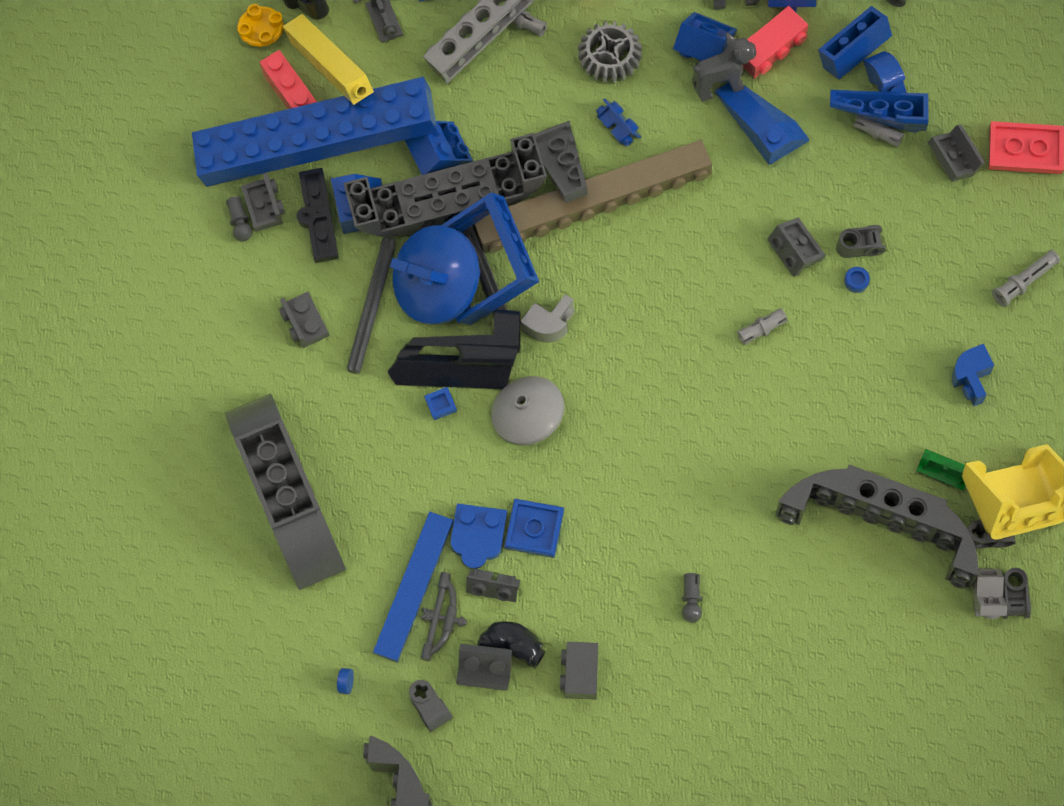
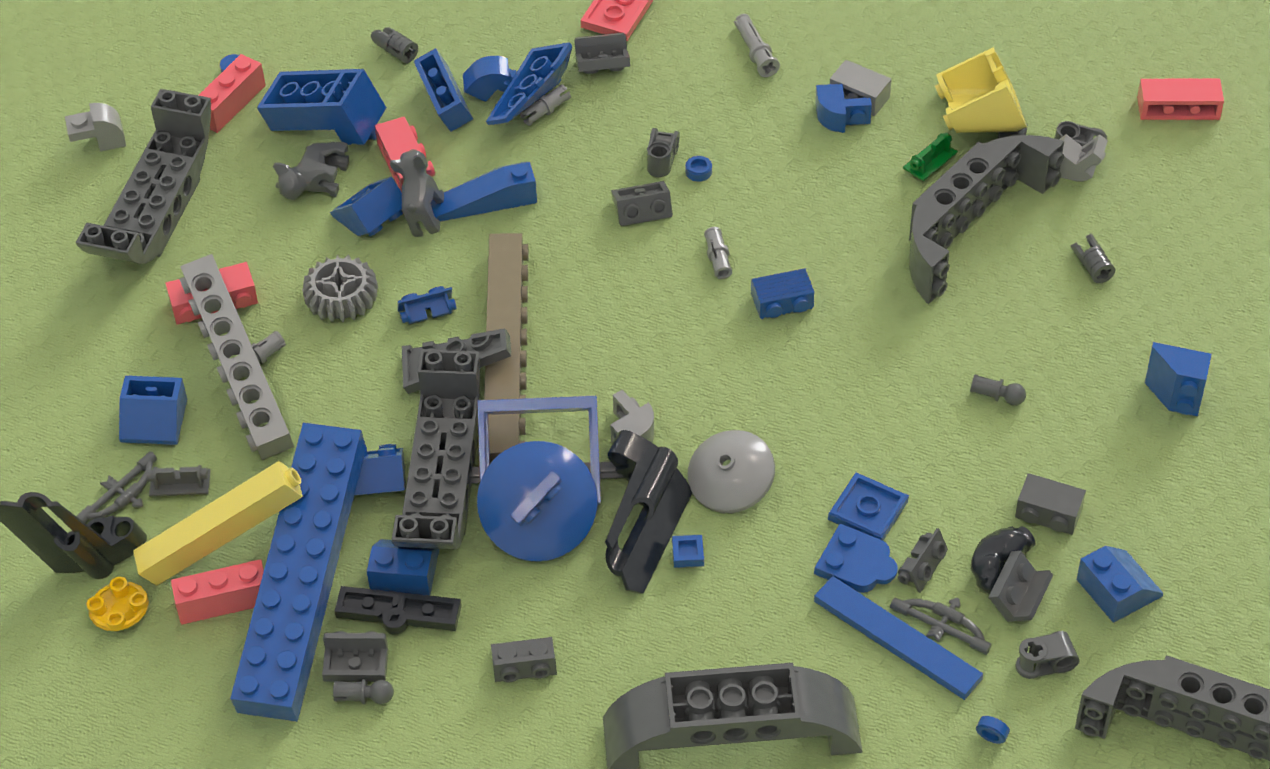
camera: 75 degrees left, 20 degrees down
(371, 305) = (536, 588): dark grey axle -> none
(522, 745) = (1116, 582): none -> blue slope
(732, 392) = (782, 293): none -> blue brick
(746, 747) = (1178, 377): none -> blue slope
(872, 643) = (1095, 260): none -> dark grey hinge
(1006, 383) = (863, 83): none -> light grey brick

